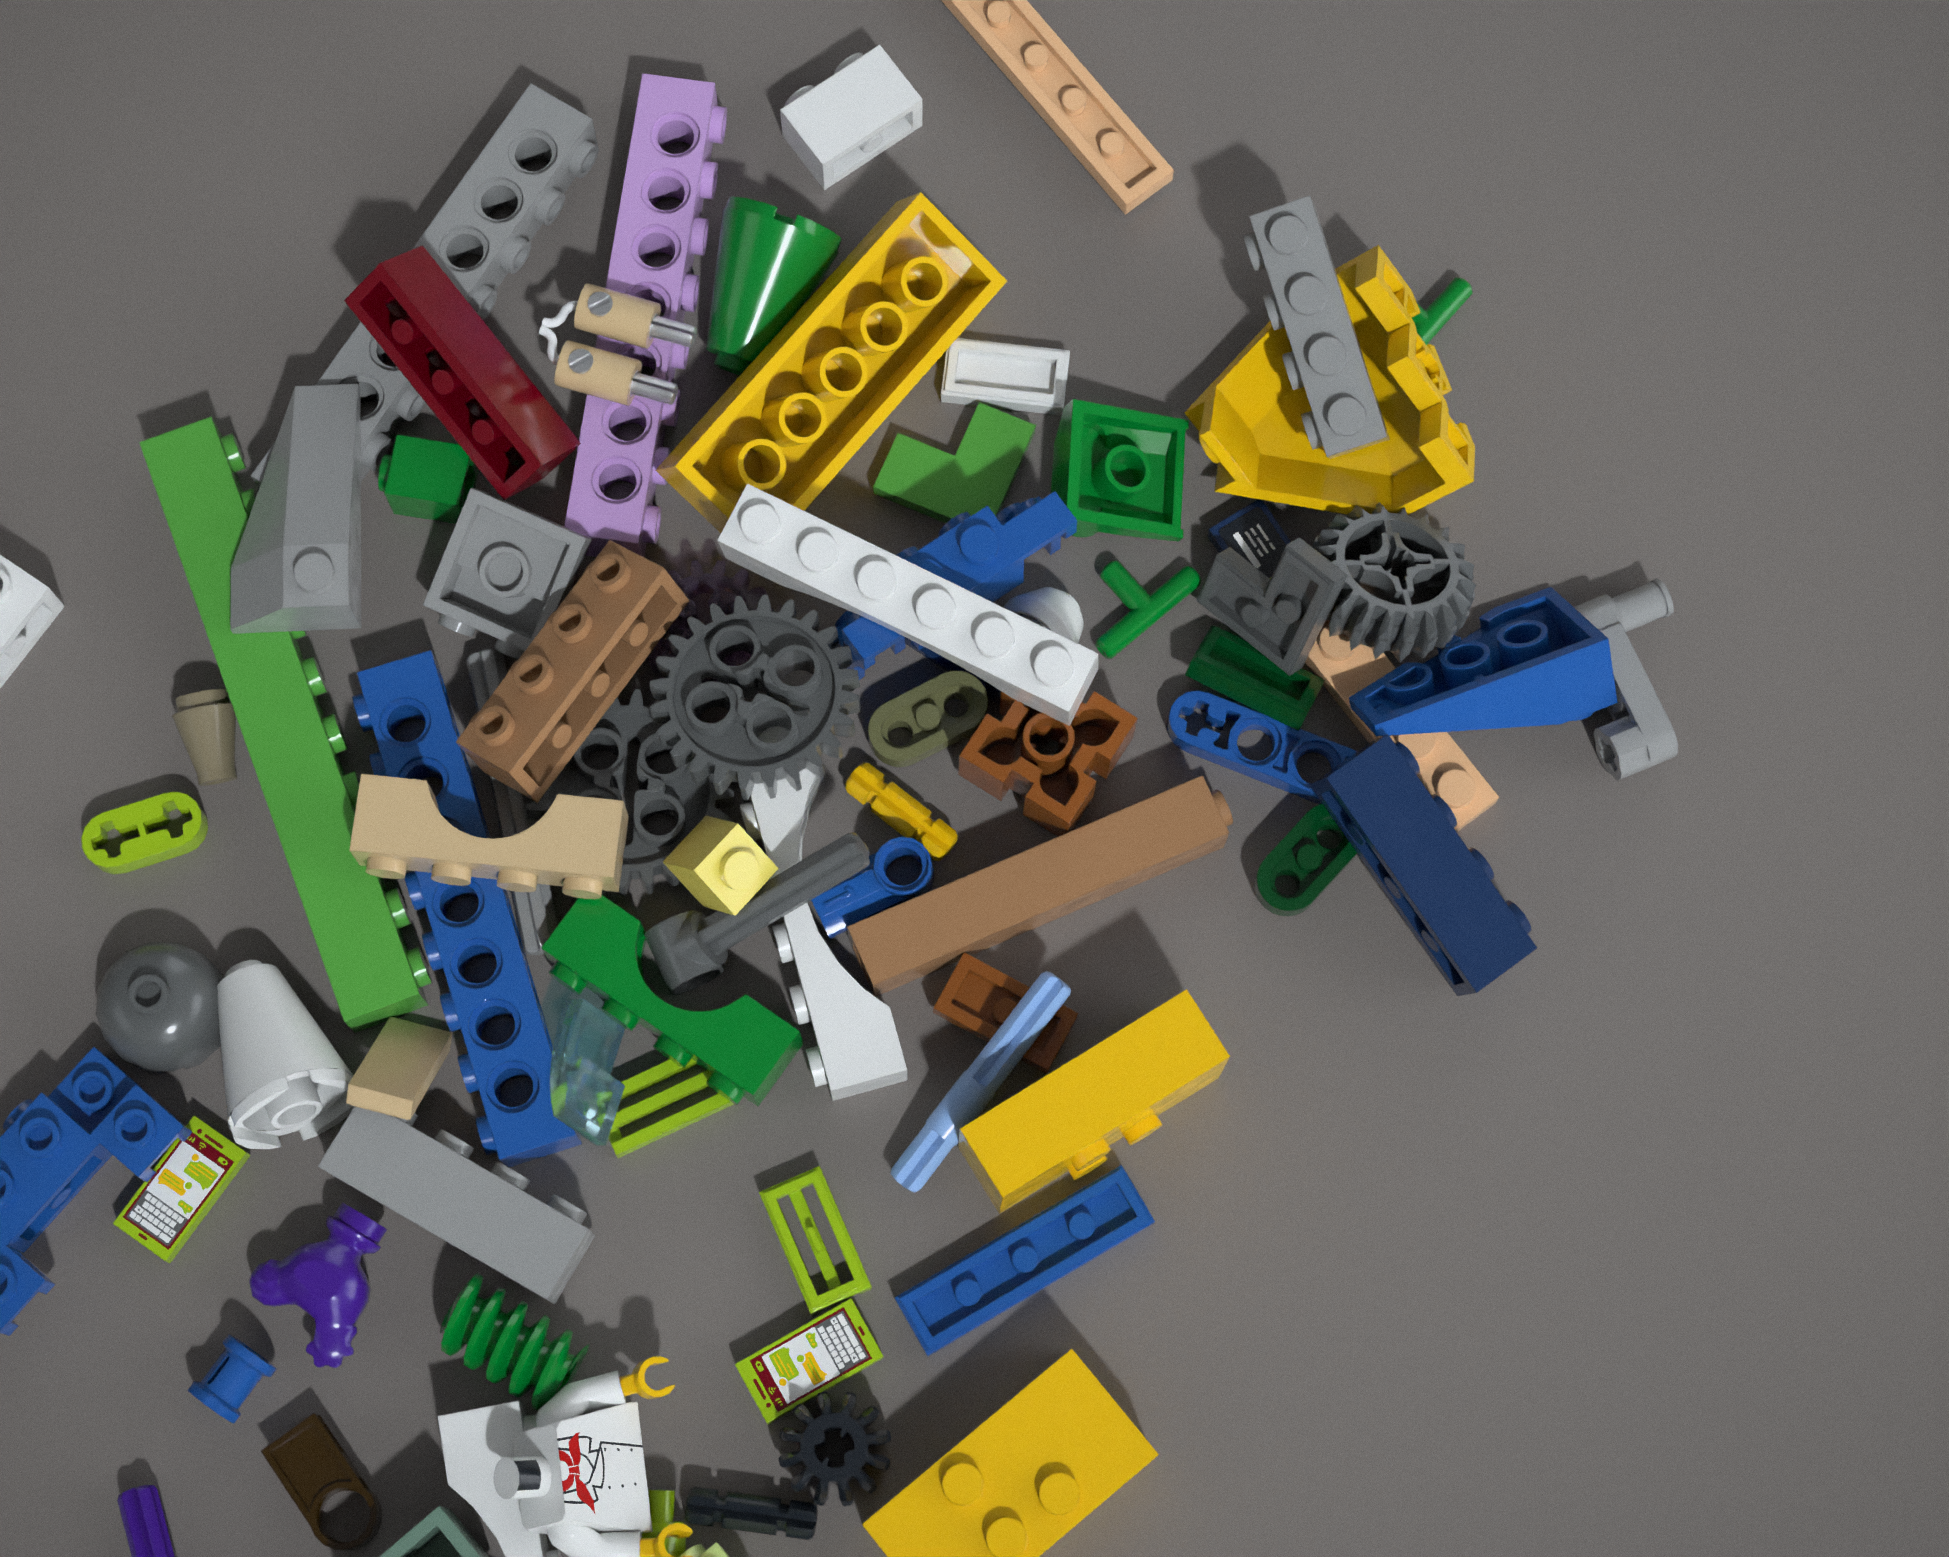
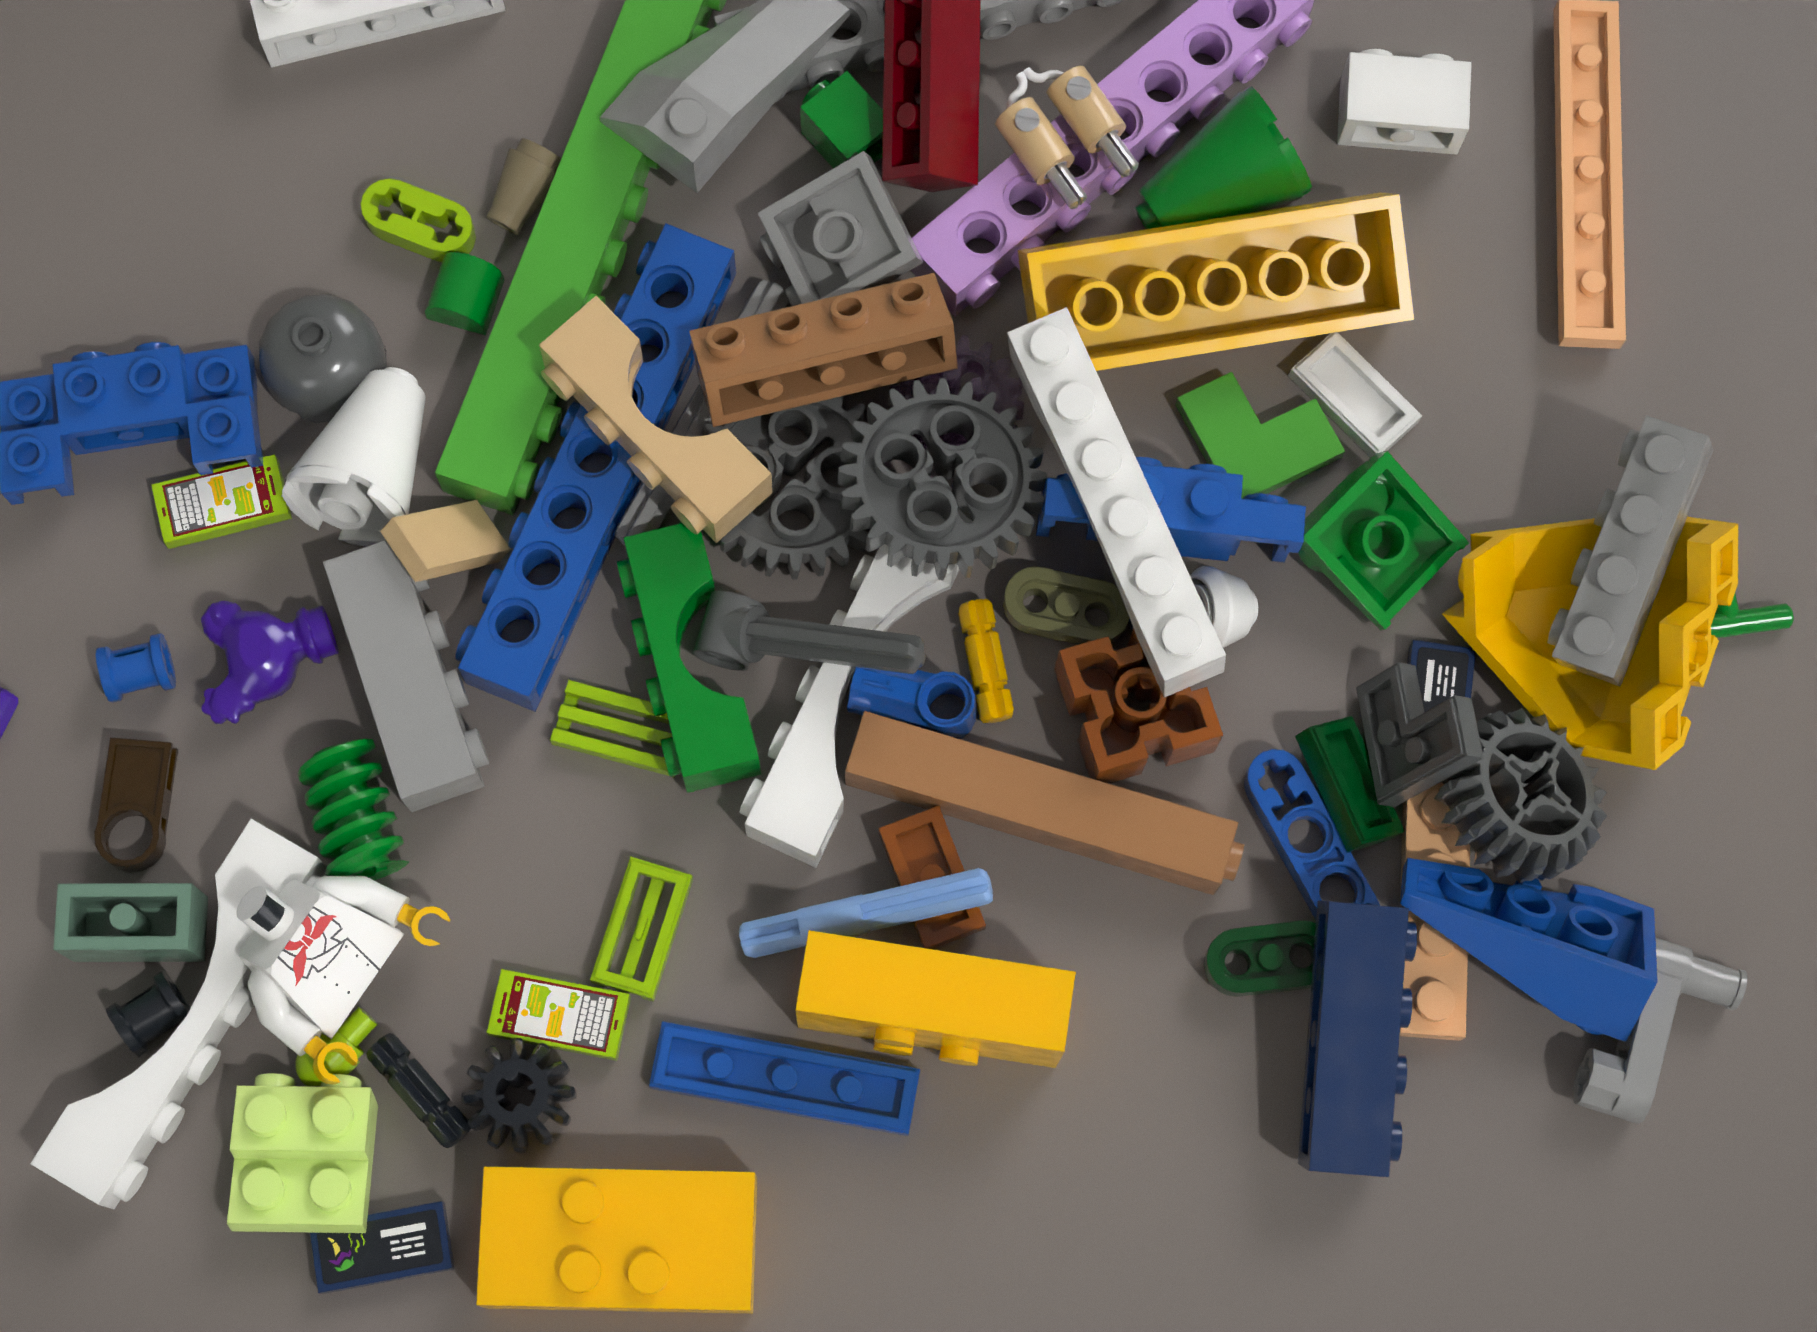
camera: 40 degrees right, 0 degrees up
(235, 860) = (465, 293): none -> green brick
(581, 1066) = (568, 659): clear light blue slope -> none
(720, 865) = (807, 584): light yellow brick -> none
(1143, 608) = (1310, 660): green piece -> none

